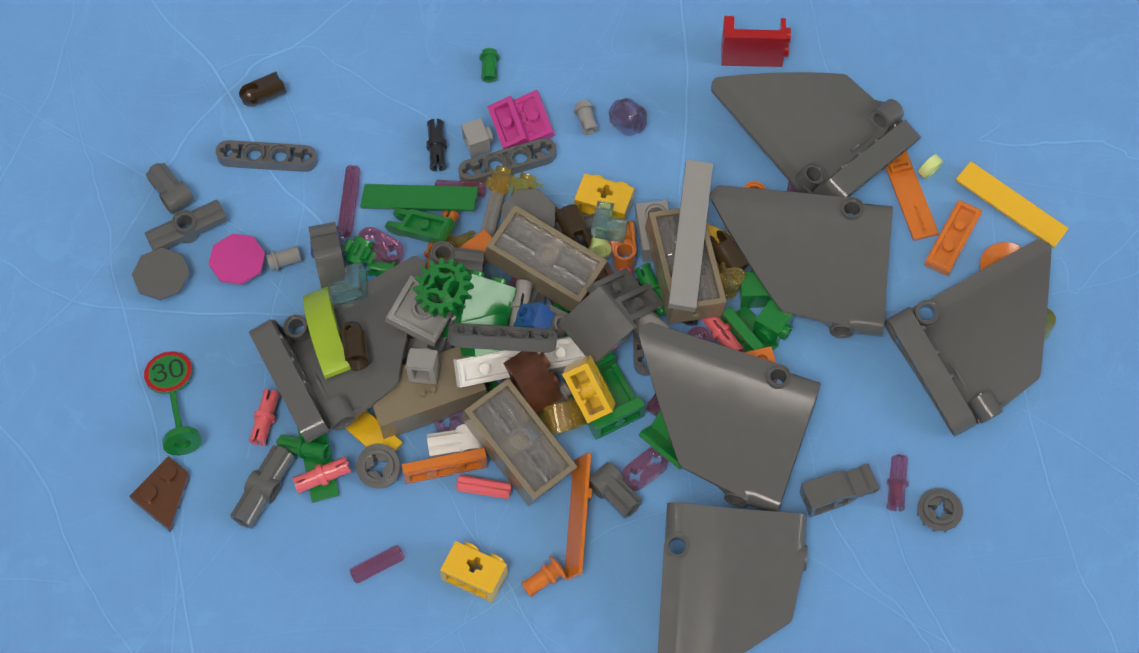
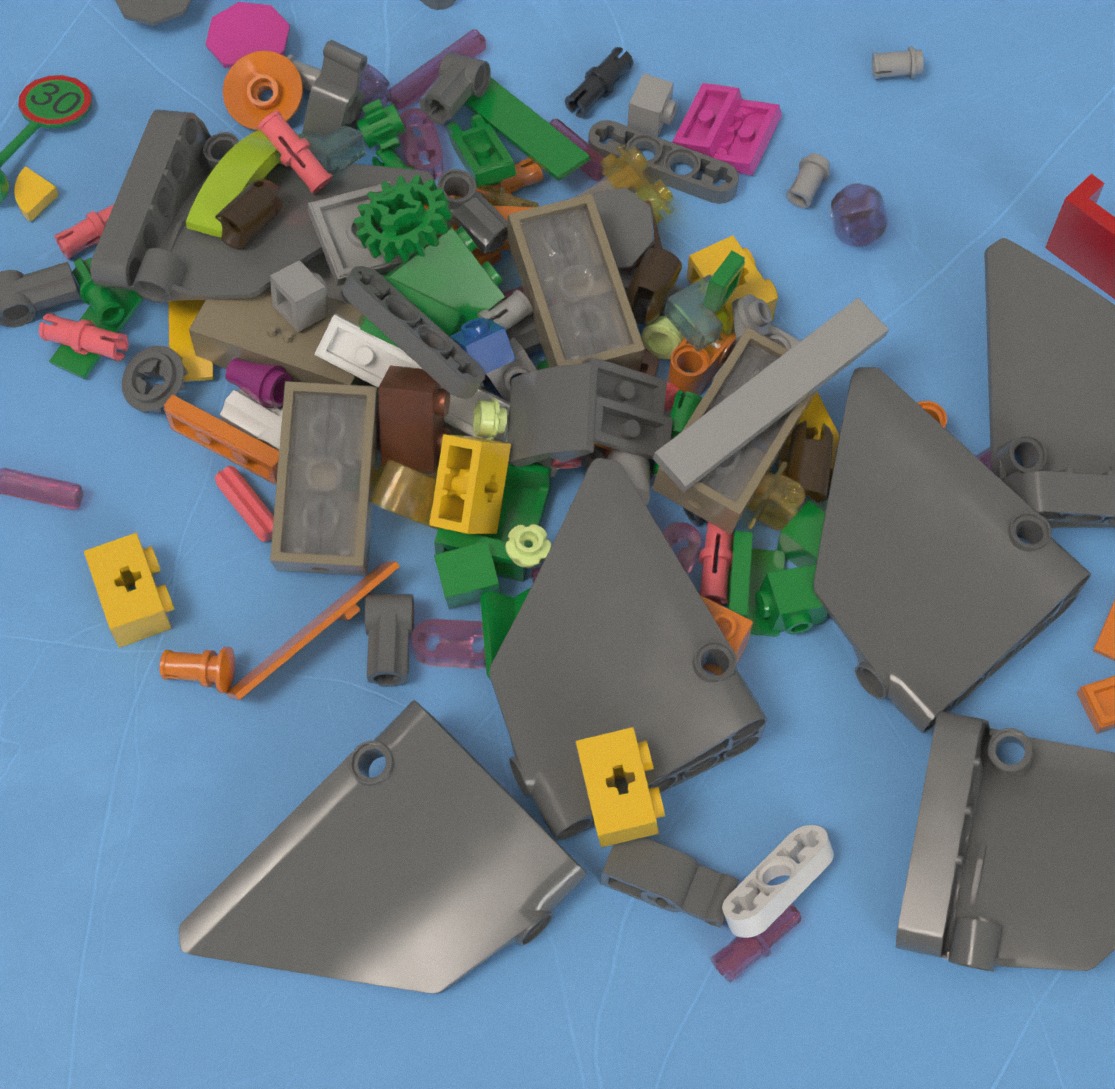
camera: 40 degrees right, 0 degrees up
(210, 427) = (33, 193): none -> yellow tile
(276, 267) = (253, 76): none -> orange dish
(360, 302) = (295, 152): none -> coral pin
(372, 201) = (456, 81): none -> dark grey piece
(437, 423) = (259, 380): none -> magenta cone
(489, 64) = (759, 33): green pin -> none
(567, 351) = (489, 418): none -> yellowish green plate
(570, 24) = (897, 63): none -> light grey pin
(613, 199) = (724, 281): none -> green tile
(623, 432) = (466, 574): none -> green panel
(635, 207) = (750, 313): none -> light grey plate
(642, 401) = (523, 555): none -> yellowish green plate
(796, 477) = (615, 815): none -> yellow brick
(892, 457) = (757, 905): none -> white beam
(952, 506) = (784, 1004): dark grey gear -> none

